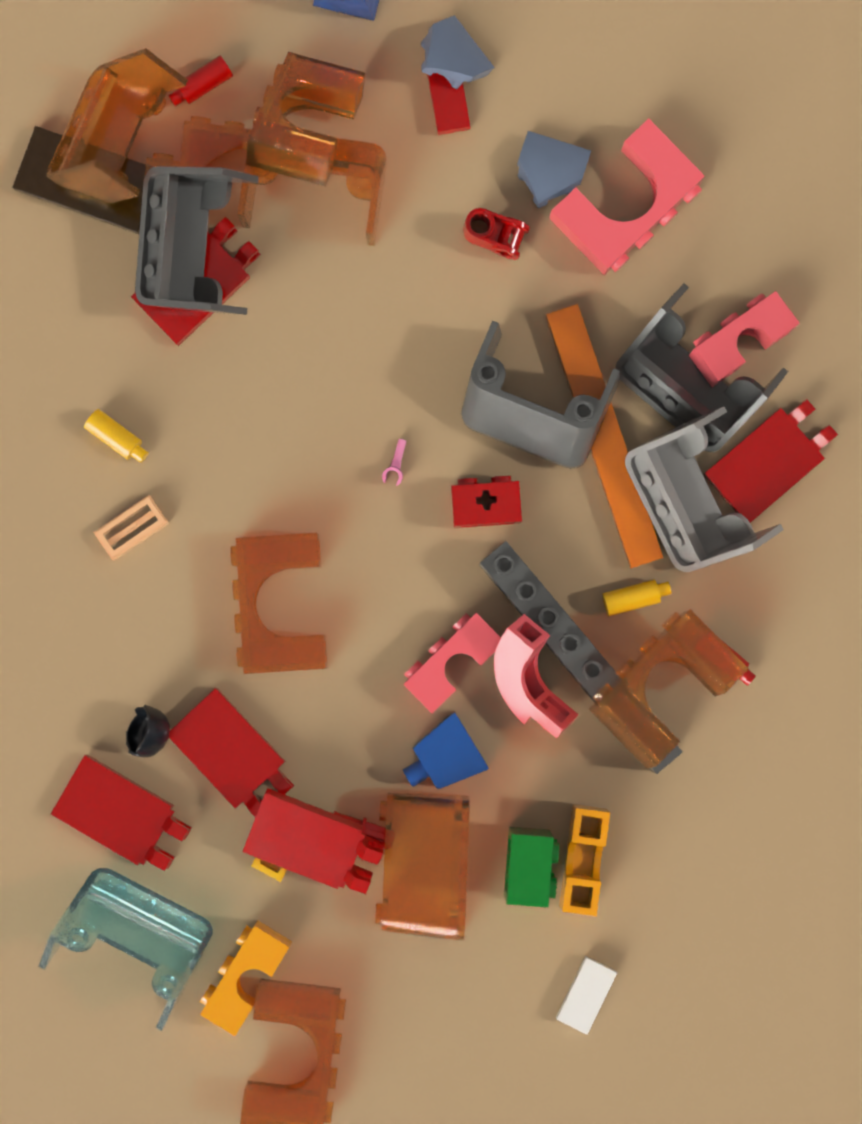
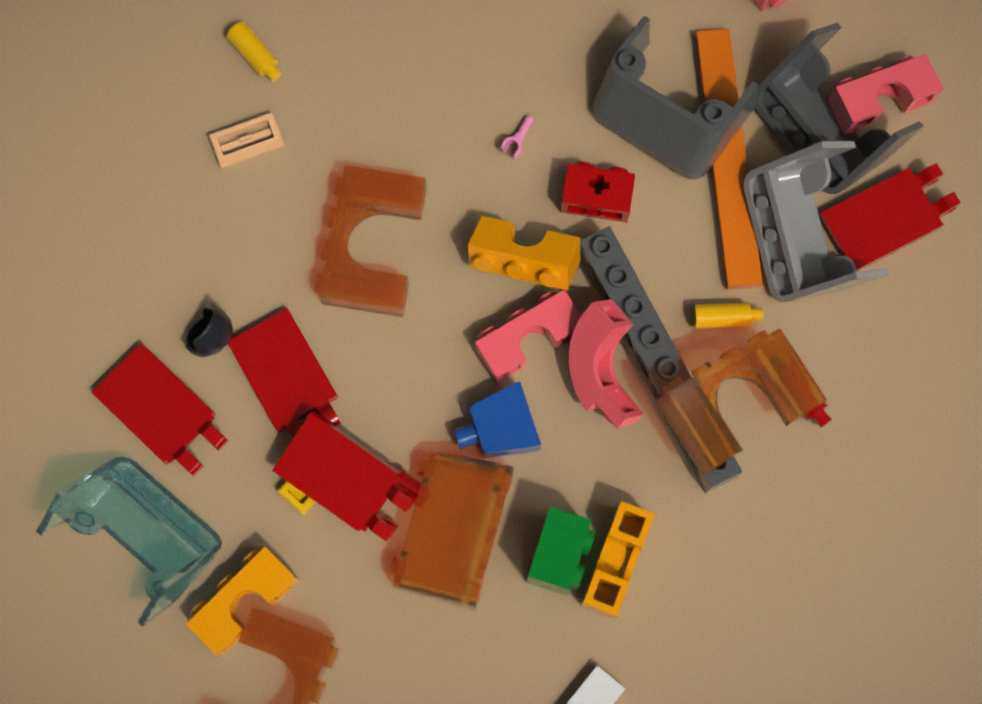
camera: 10 degrees right, 10 degrees down
(455, 592) = (546, 263): none -> light orange arch

